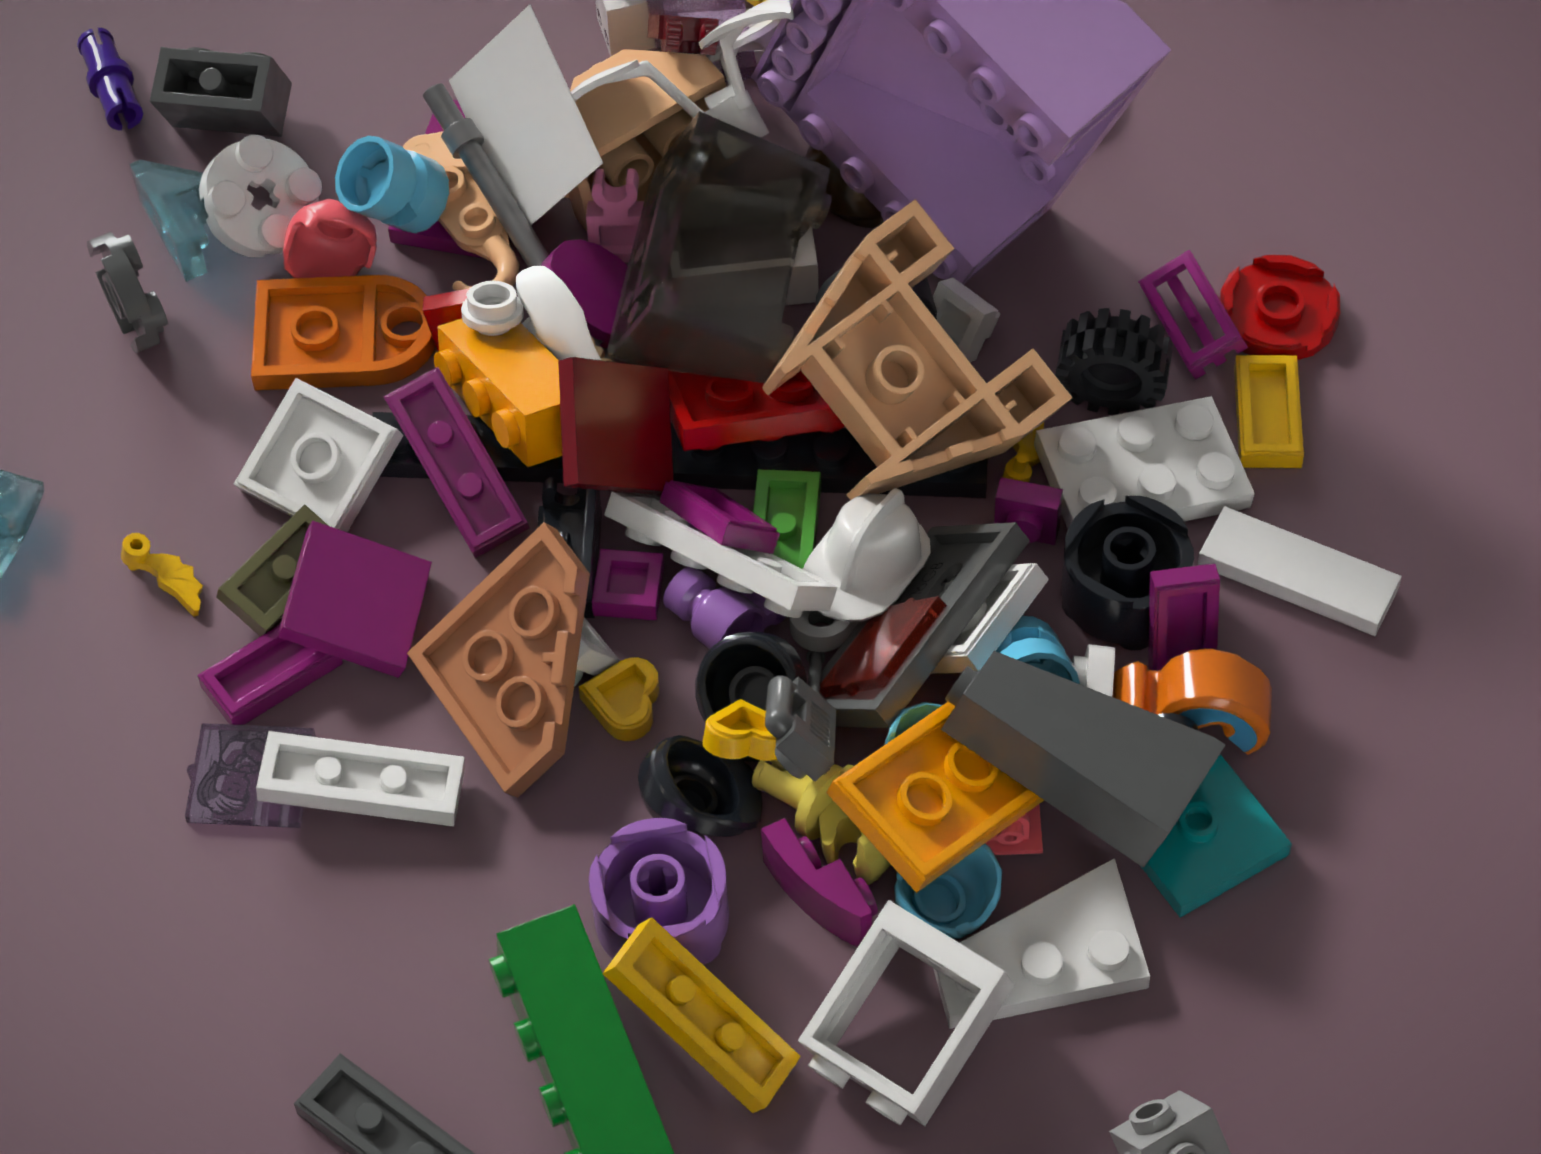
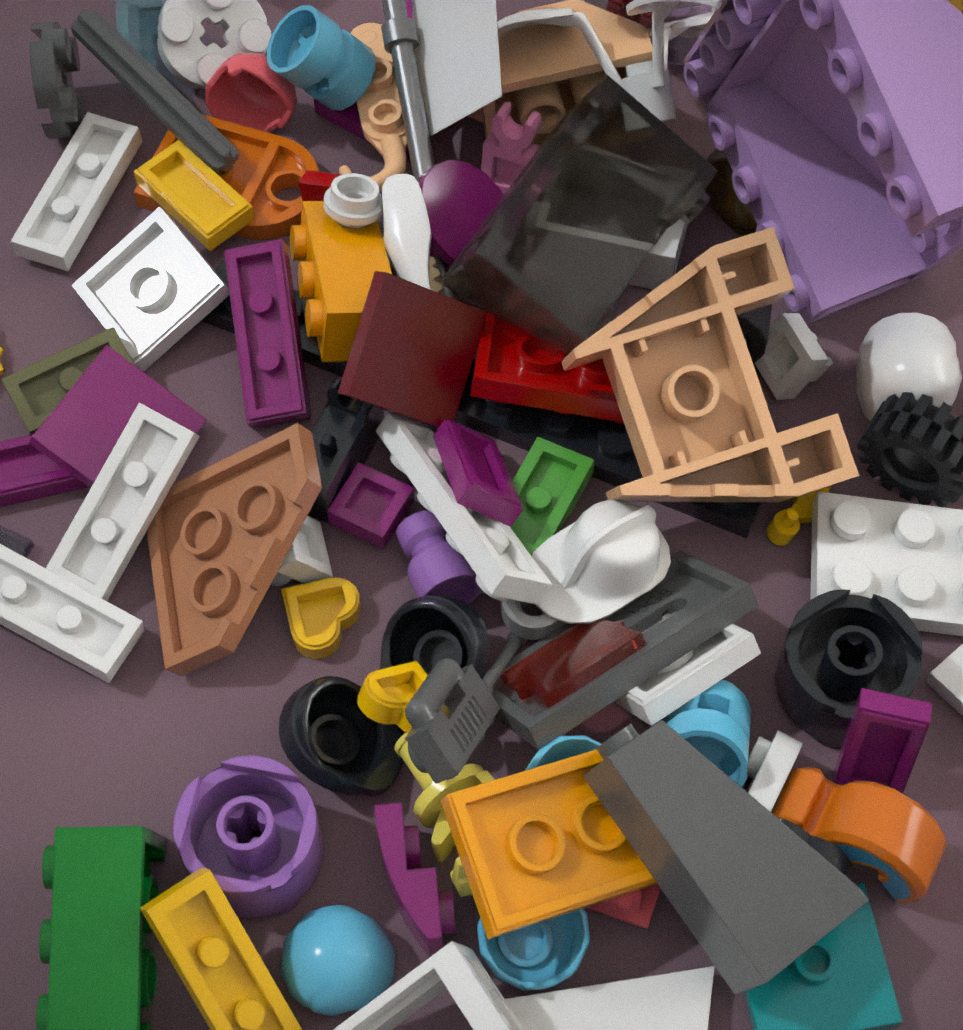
camera: 20 degrees right, 5 degrees up
(193, 393) = (76, 191): none -> white plate
(233, 270) = (154, 91): none -> dark grey axle
(317, 356) = (194, 195): none -> yellow tile
(397, 653) = (122, 502): none -> white plate
(781, 974) = (337, 960): none -> medium azure hair
(1032, 507) = (776, 569): magenta plate -> none
(1063, 284) = (907, 356): none -> white piece

